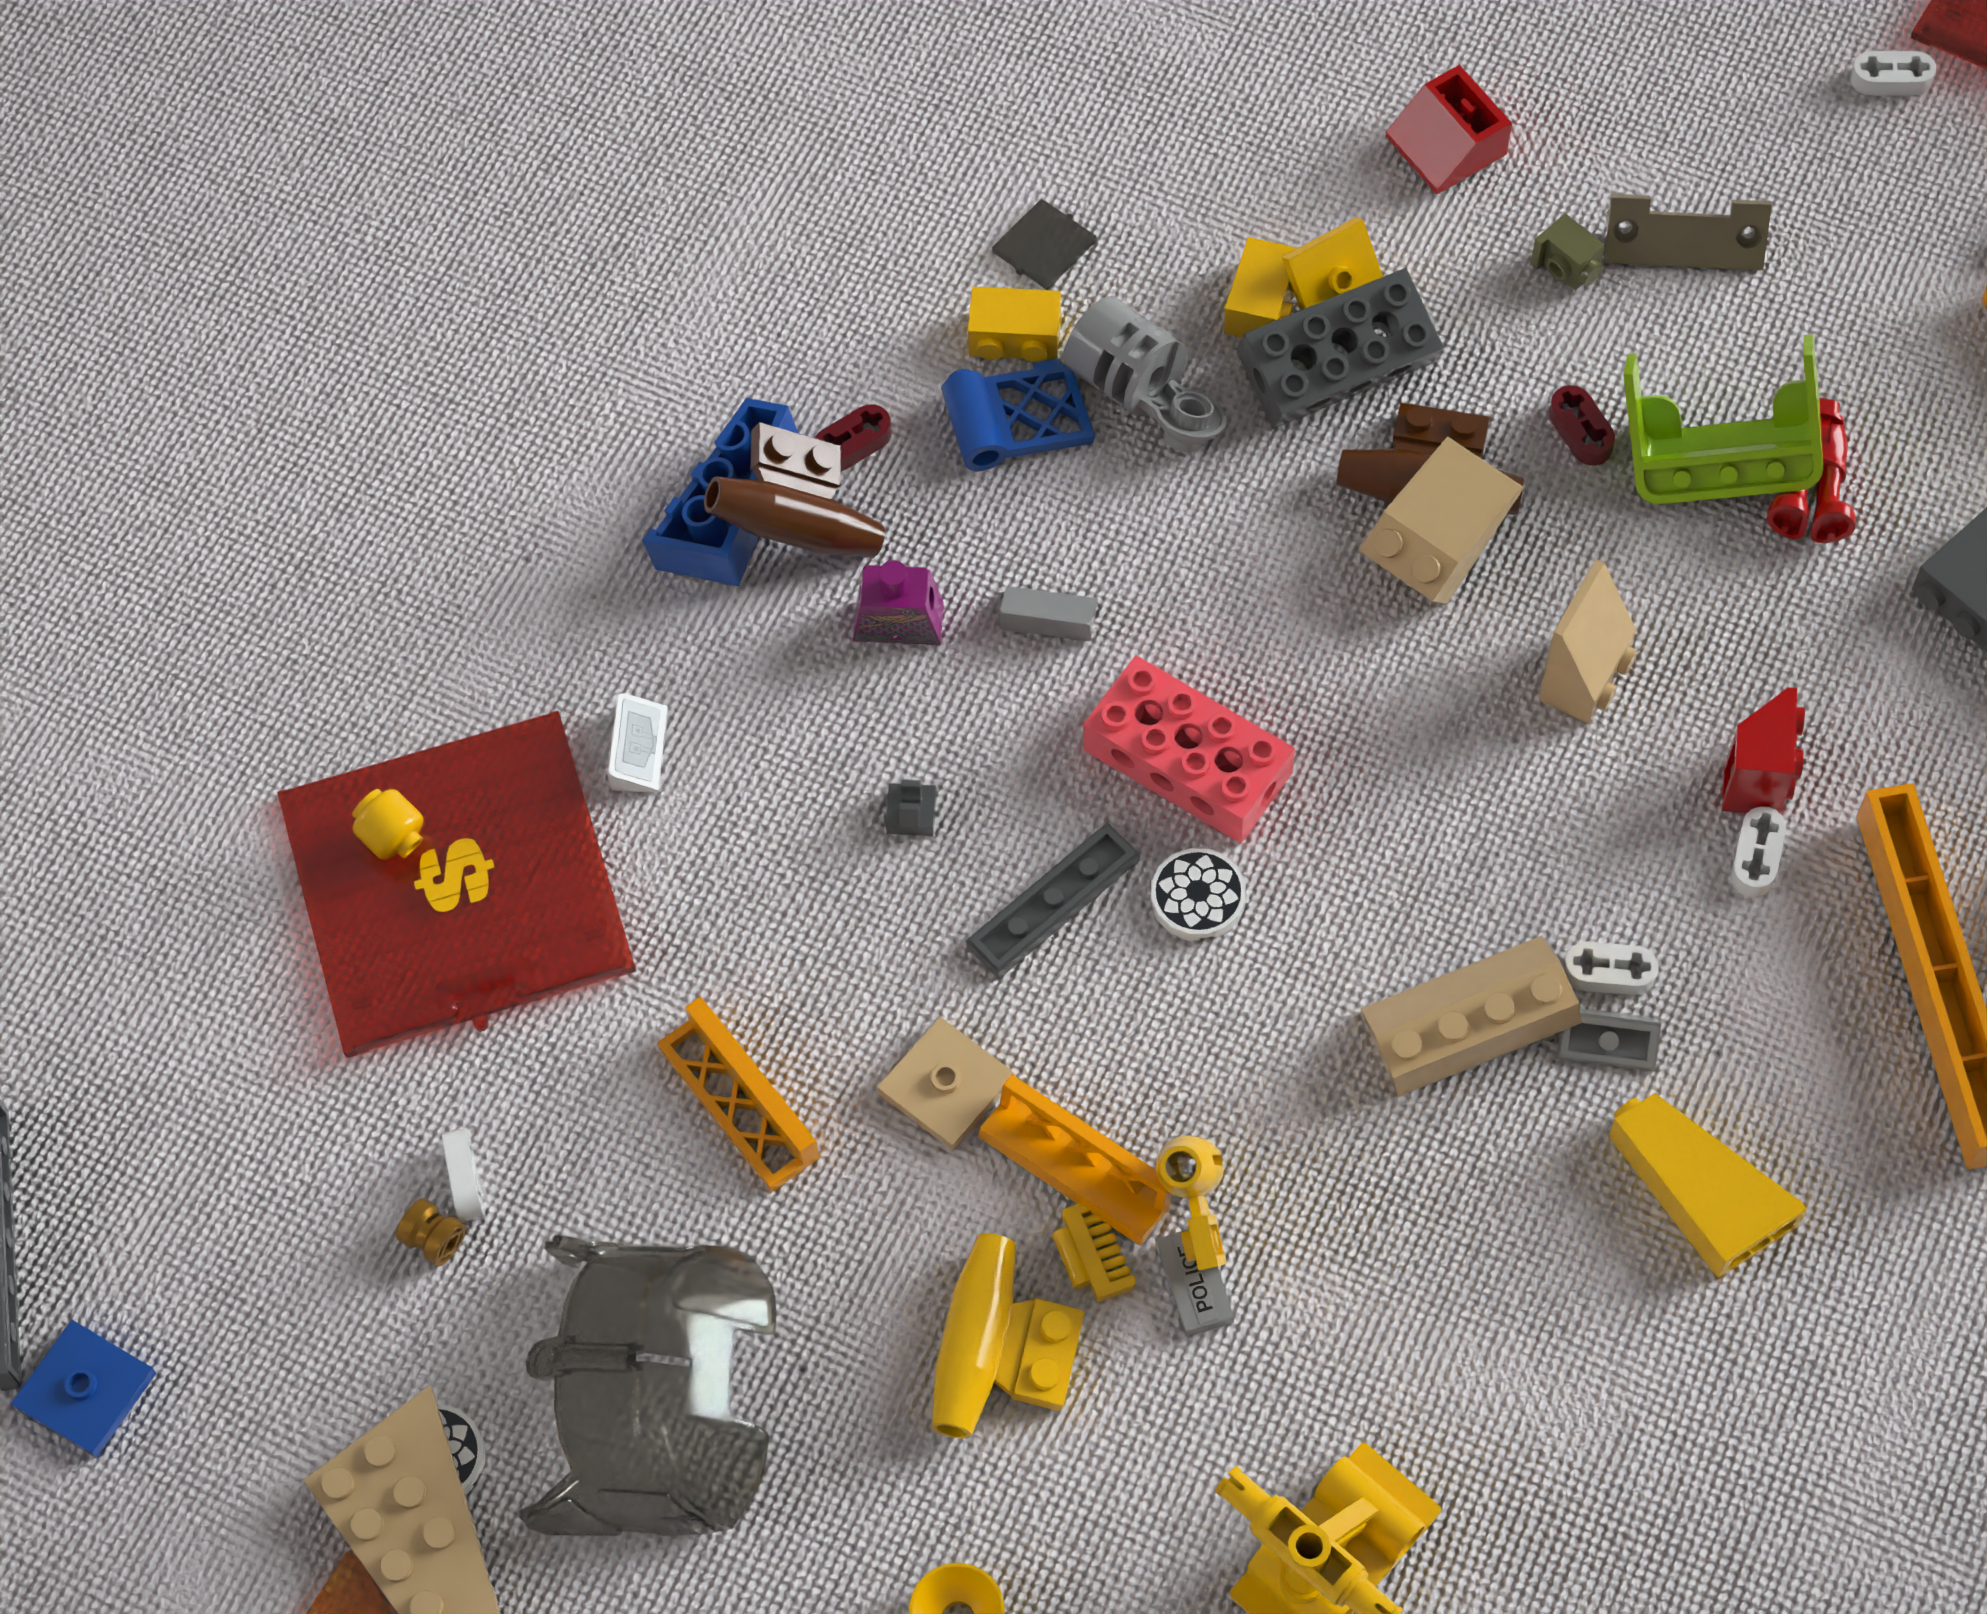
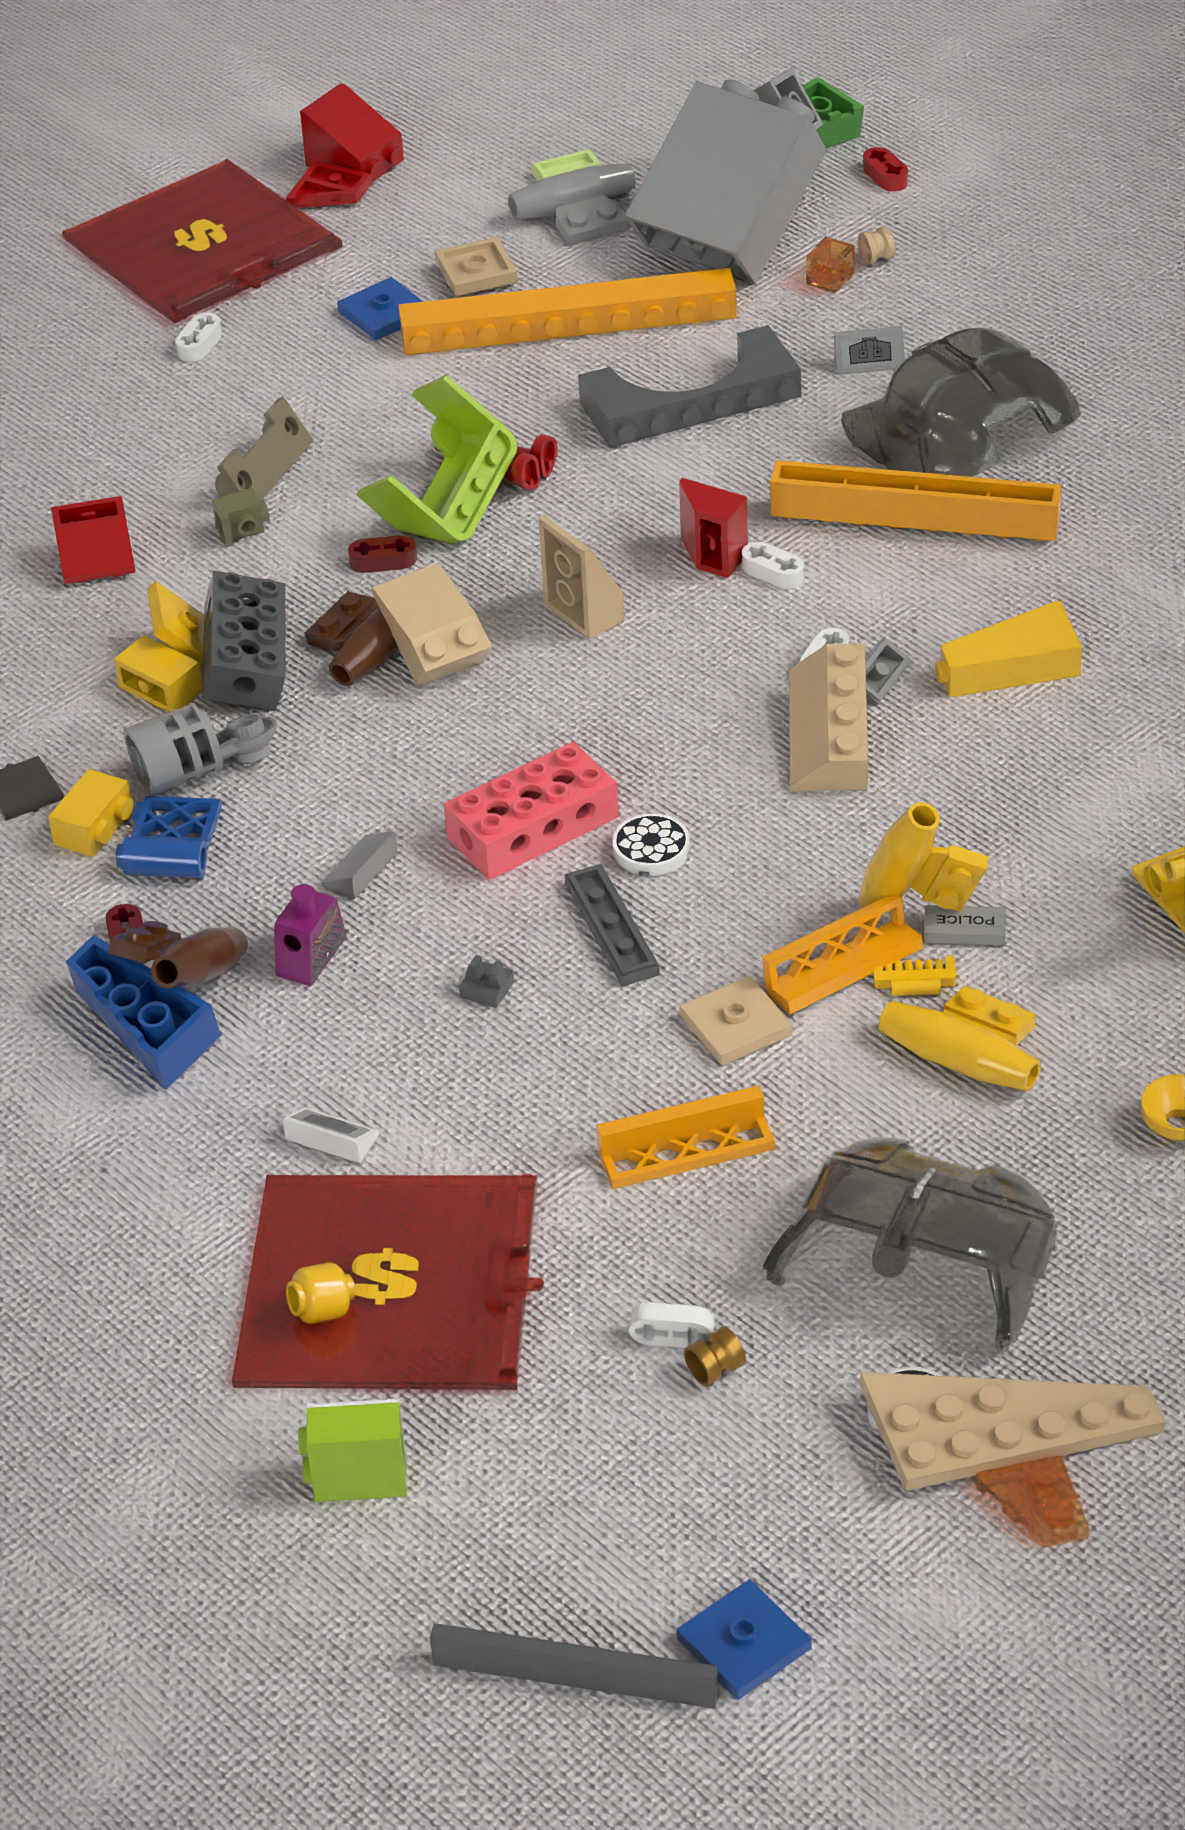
camera: 70 degrees left, 20 degrees down
(186, 938) = (354, 1450): none -> lime piece

